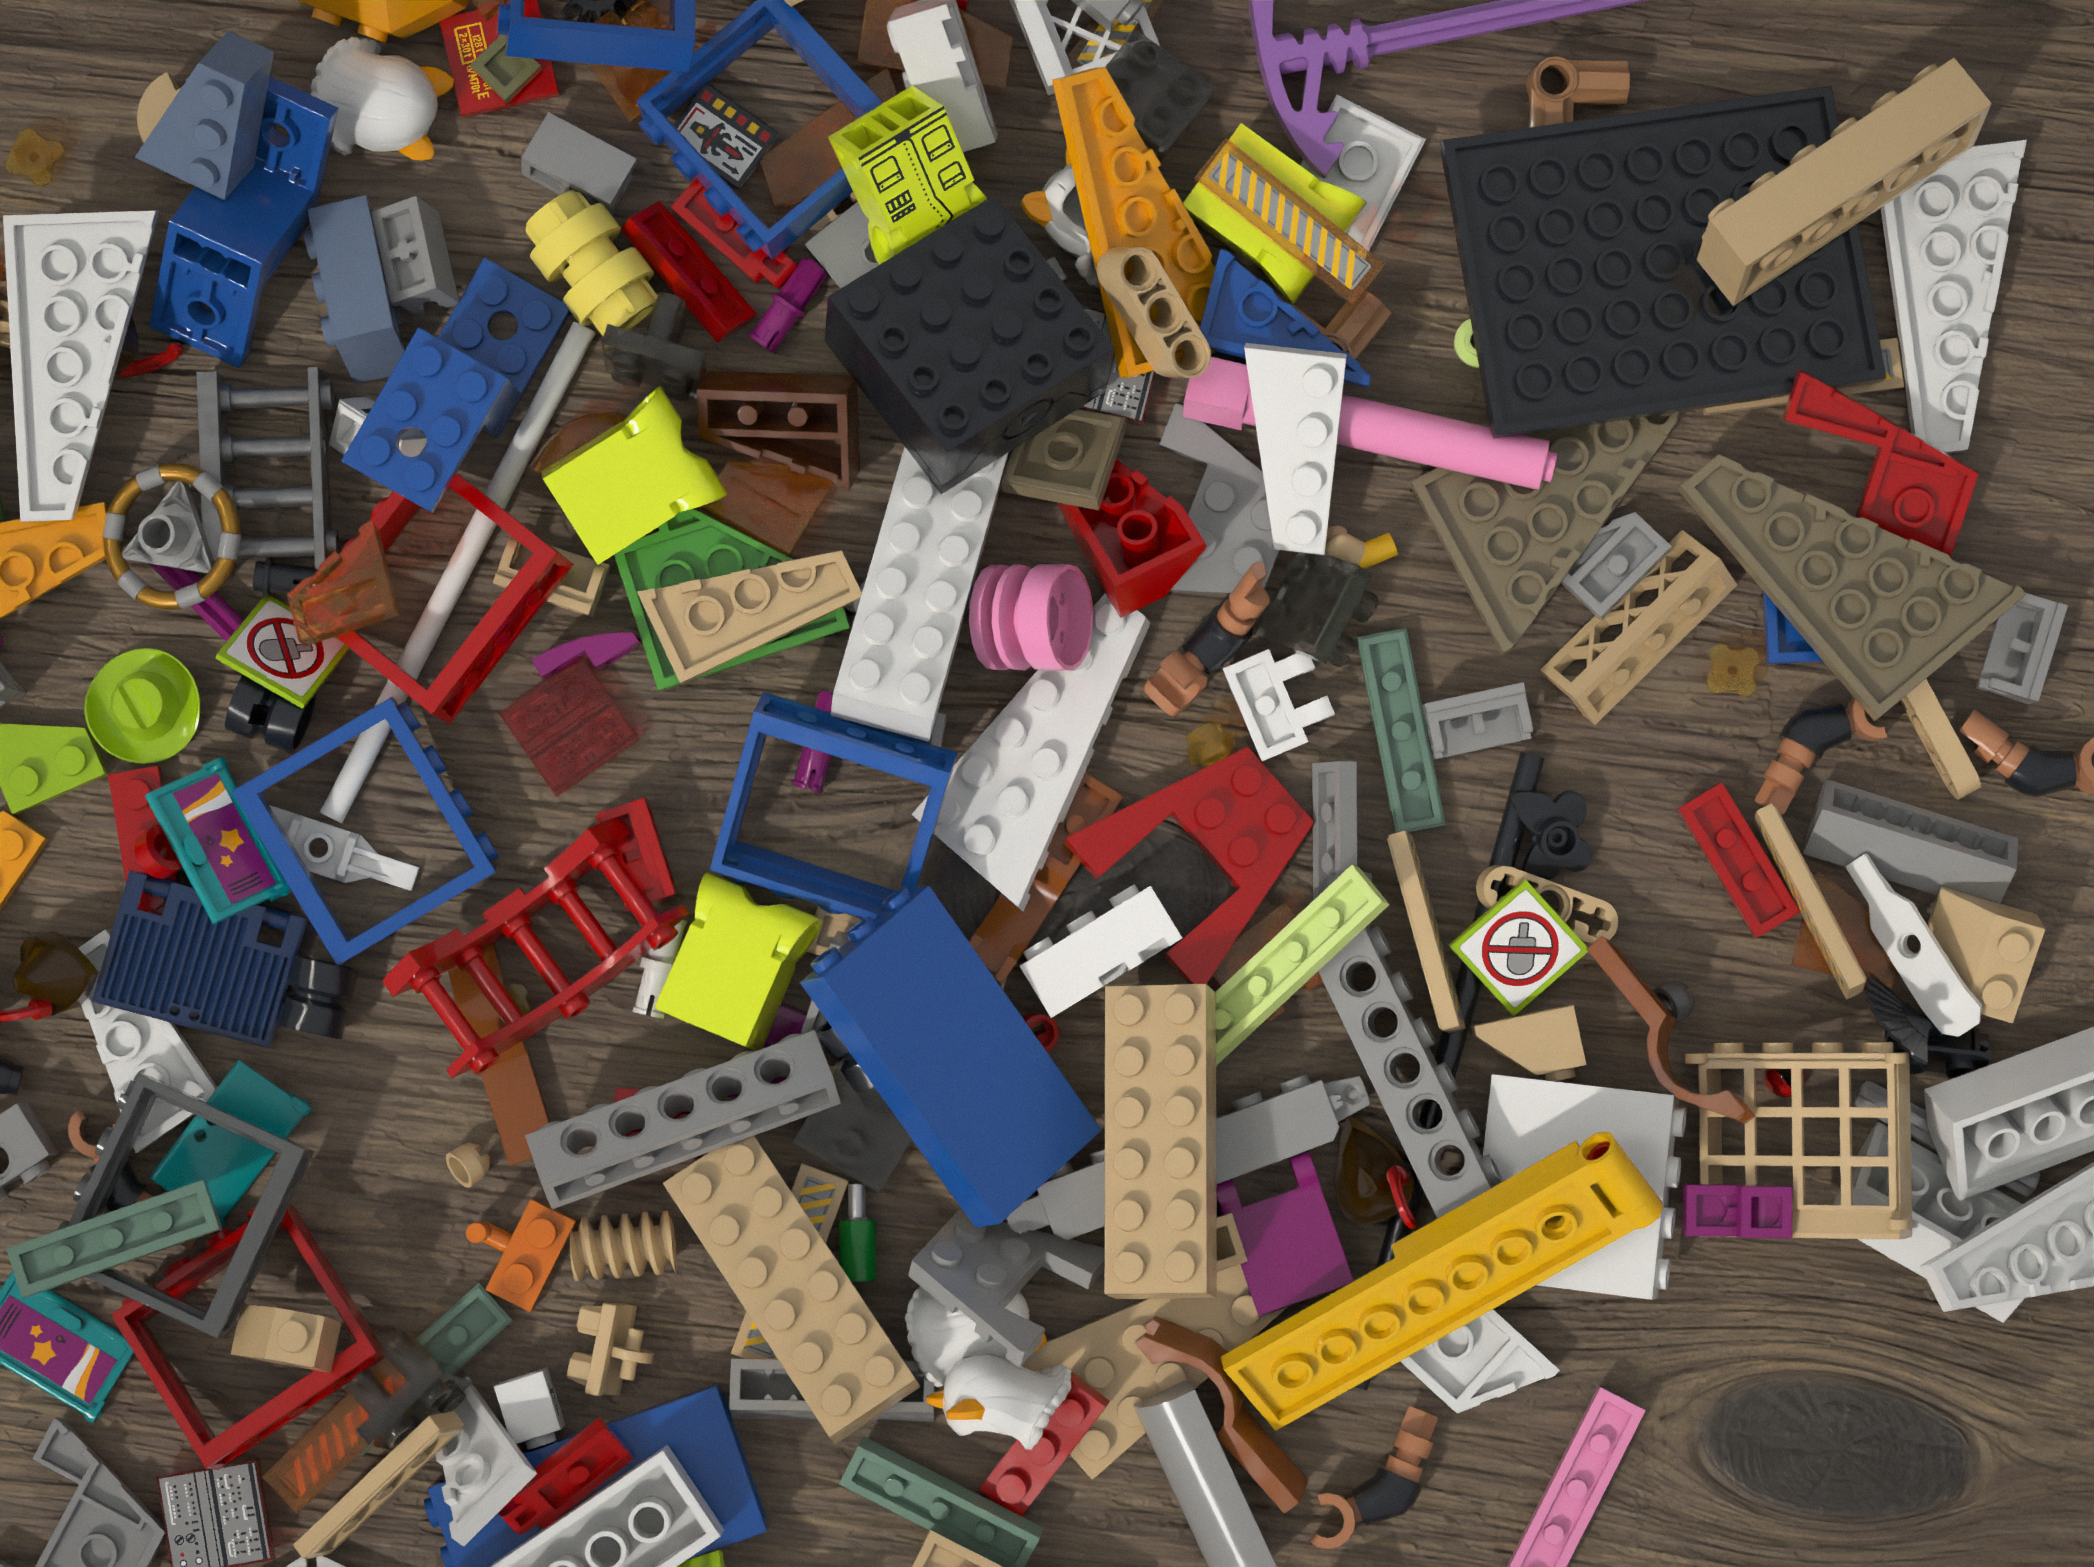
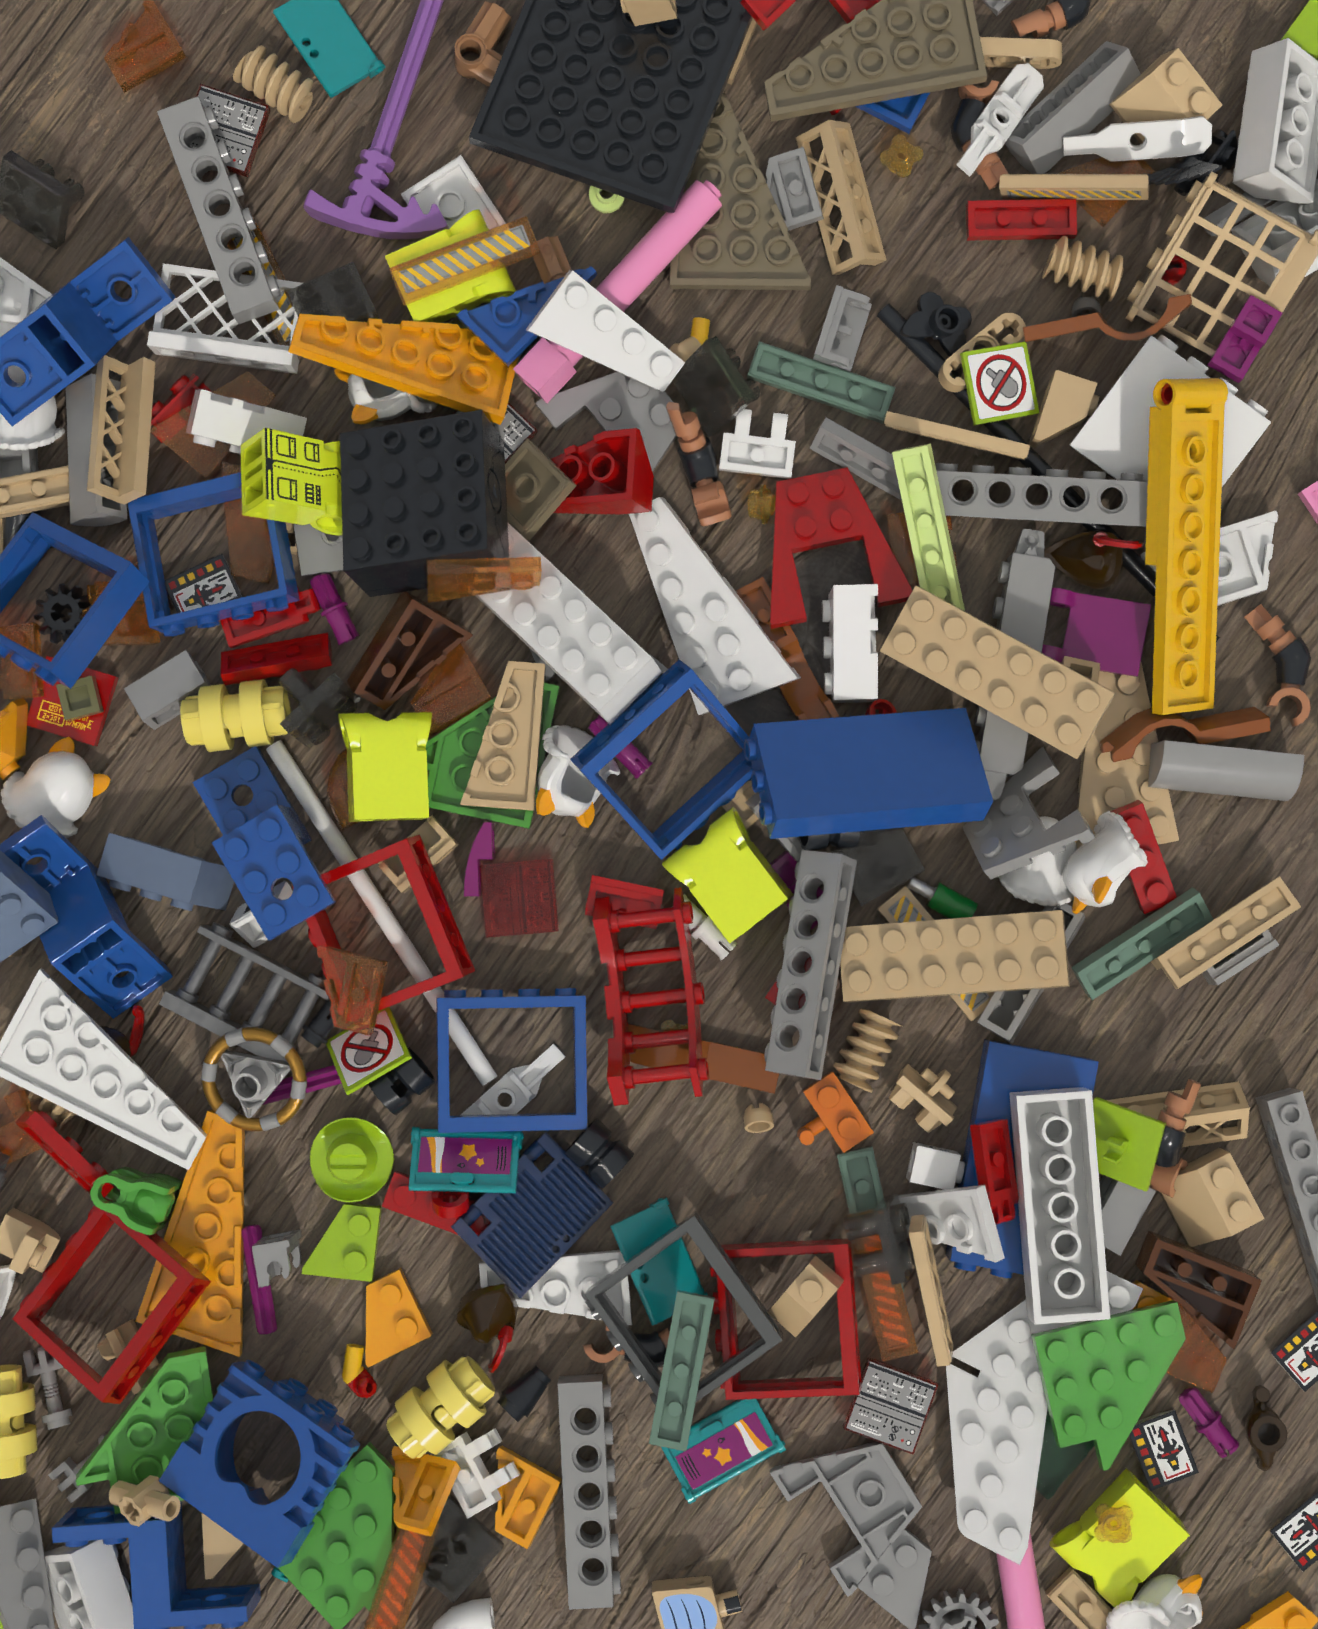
camera: 55 degrees left, 0 degrees up
(414, 255) = (165, 824): light grey hinge -> none
(728, 695) = (560, 783): none -> white hair
(917, 462) = (475, 577): none -> clear orange wing
(1031, 617) = (619, 565): bright pink wheel -> none
(1174, 321) = (487, 367): tan beam -> none
(1722, 970) = (1085, 267): none -> tan piece
(1871, 763) = (1008, 102): none -> white piece

